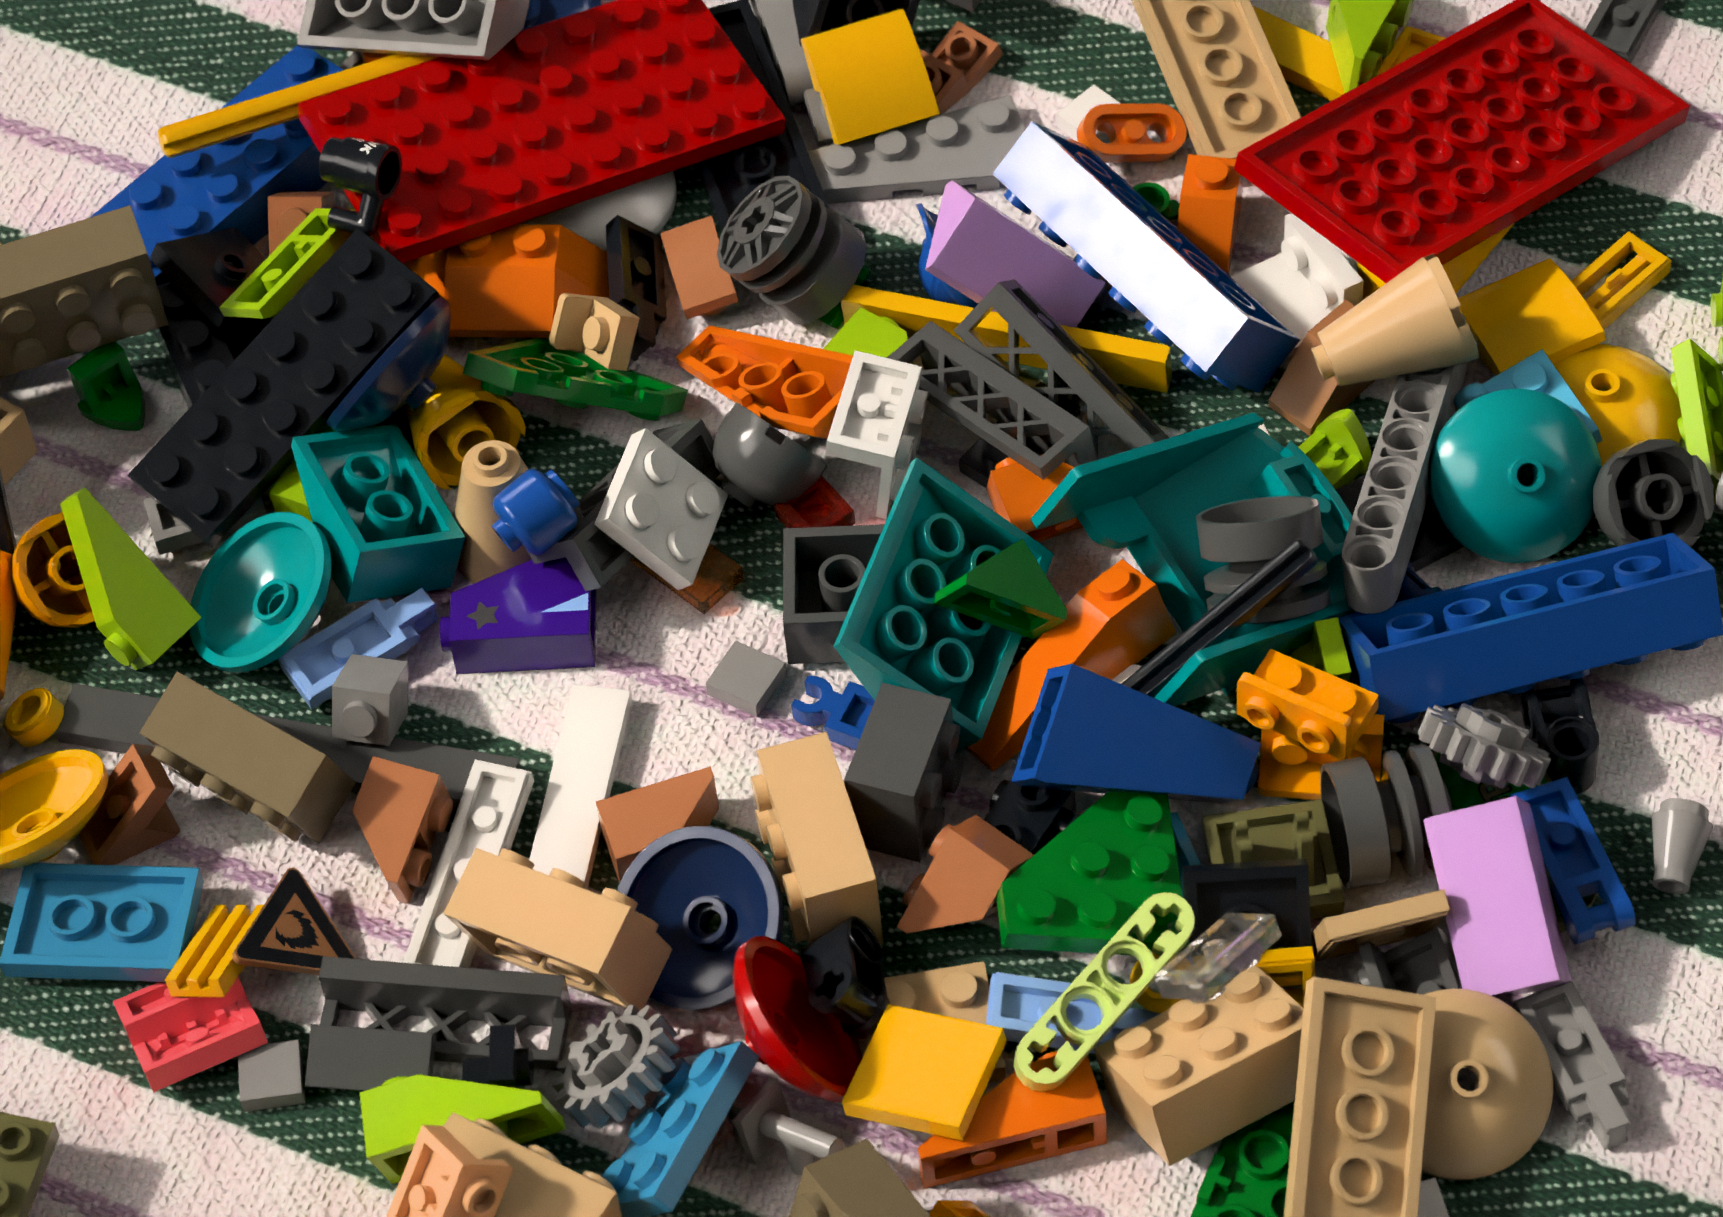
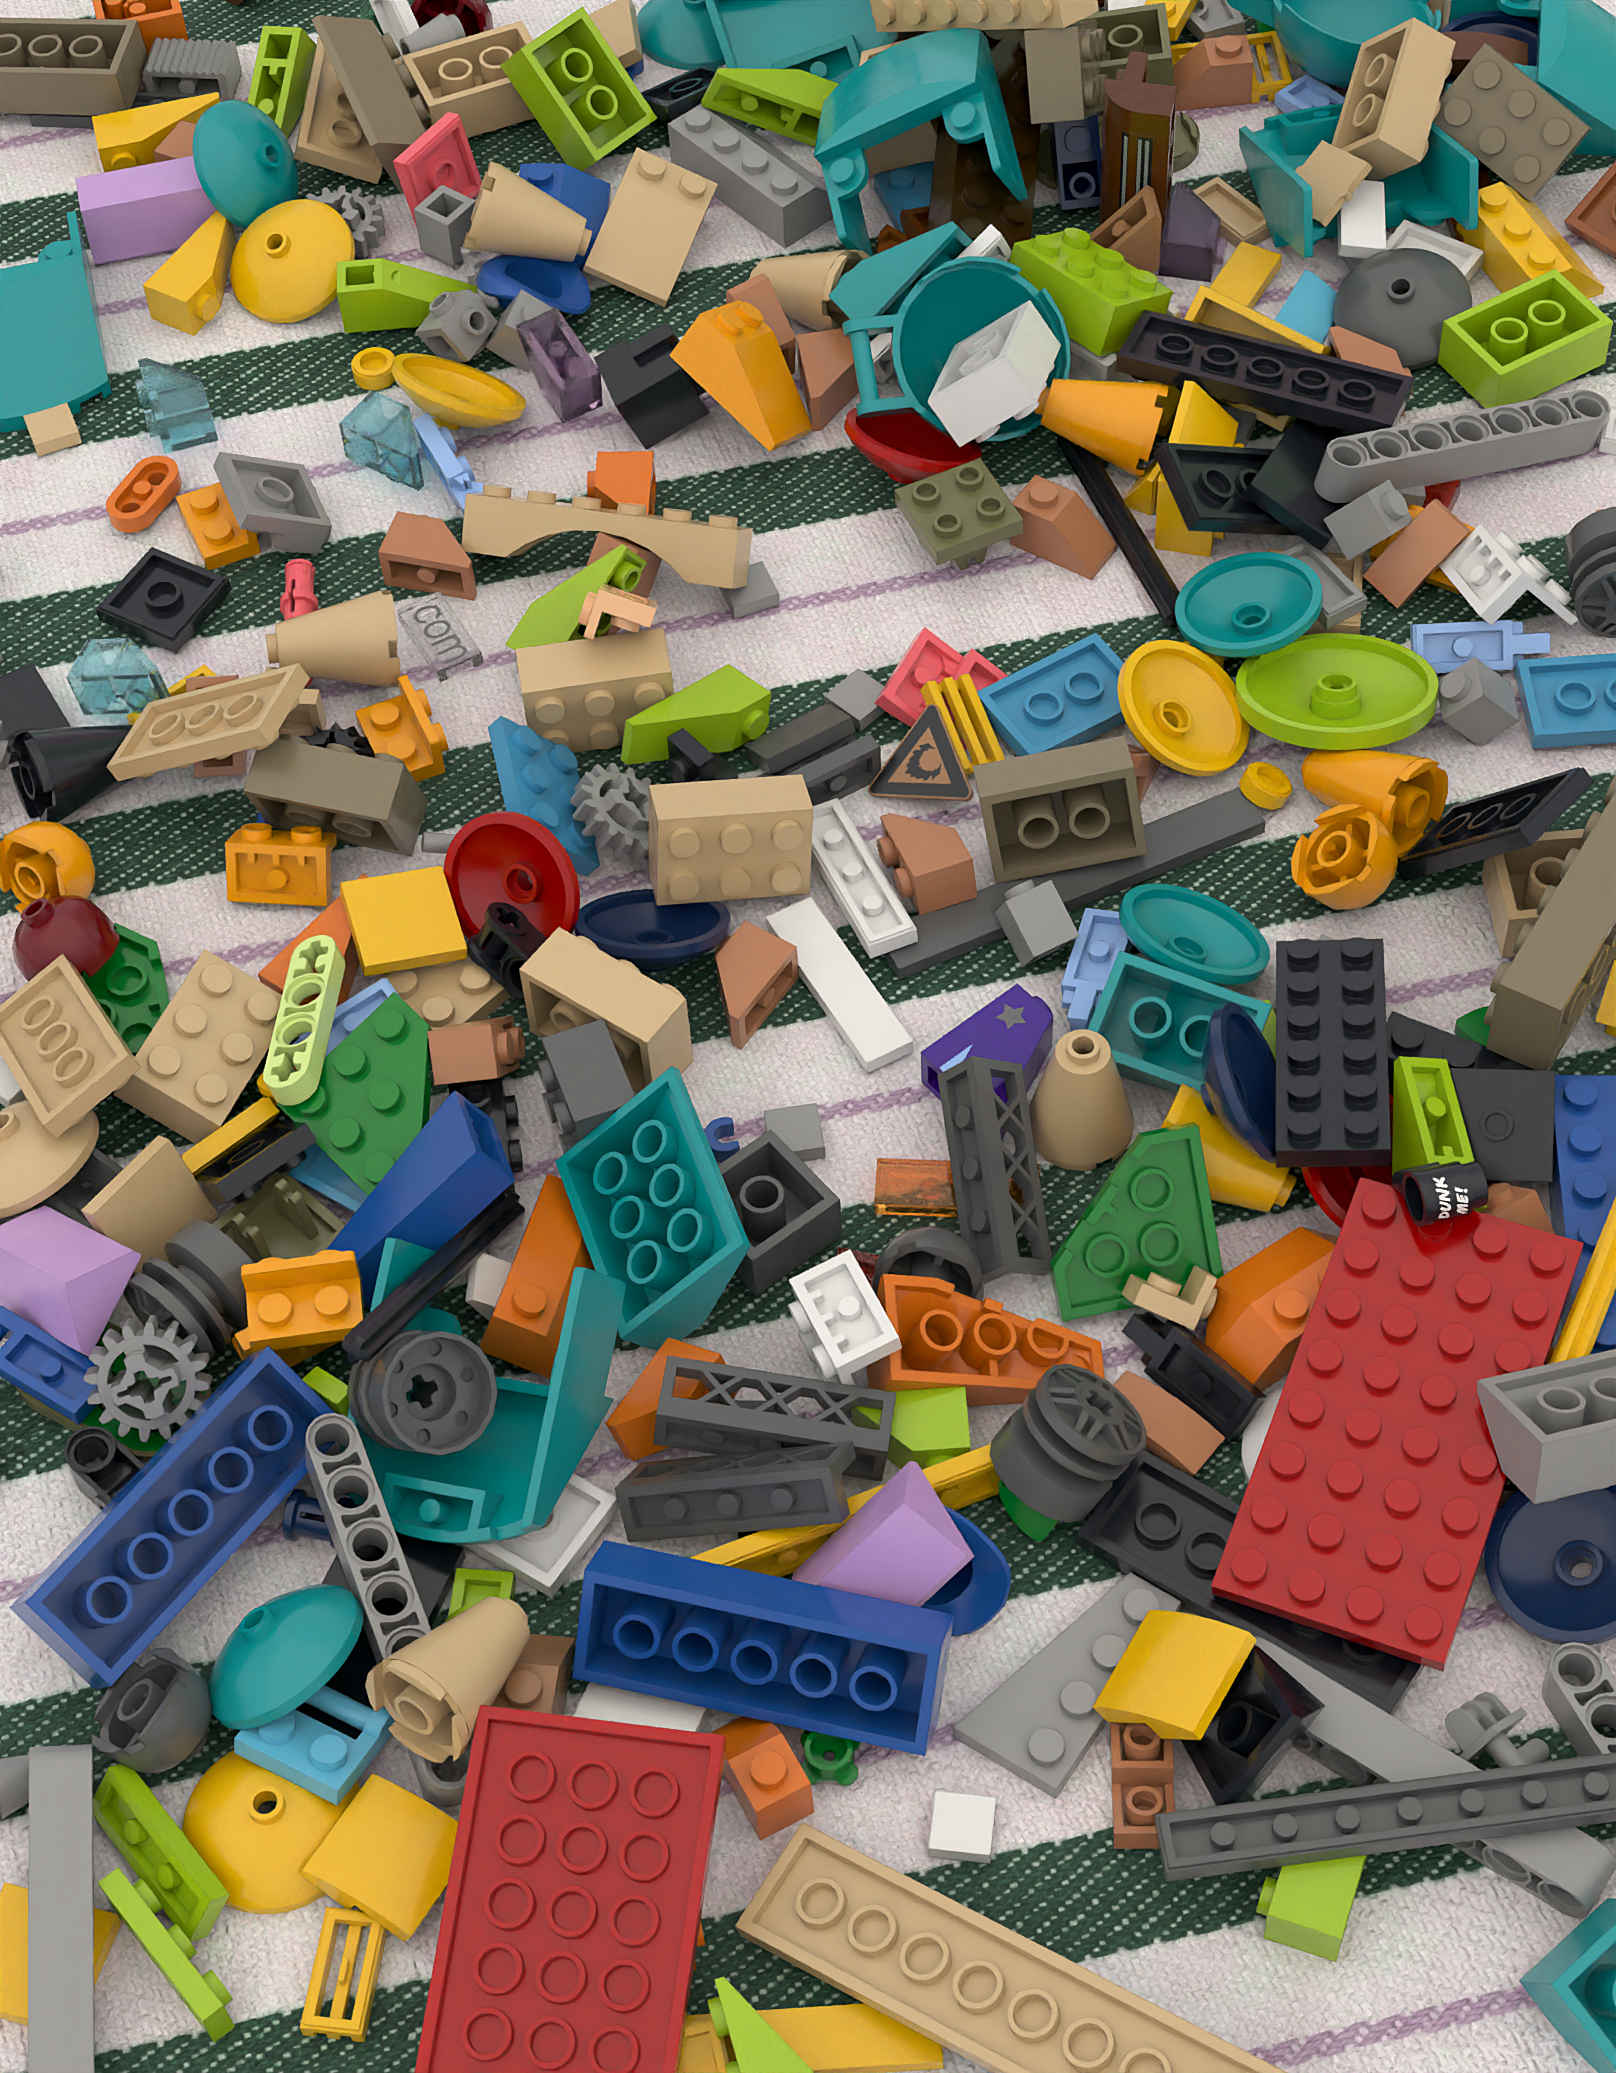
camera: 140 degrees right, 0 degrees up
(125, 590) = (1285, 864): lime slope -> none
(534, 512) = (1019, 1052): blue head -> none
(661, 509) = (953, 1159): white plate -> none
(1007, 593) = (611, 1228): green slope -> none
(1127, 132) = (901, 1809): orange plate -> none
(1217, 957) = (237, 1085): clear plate -> none

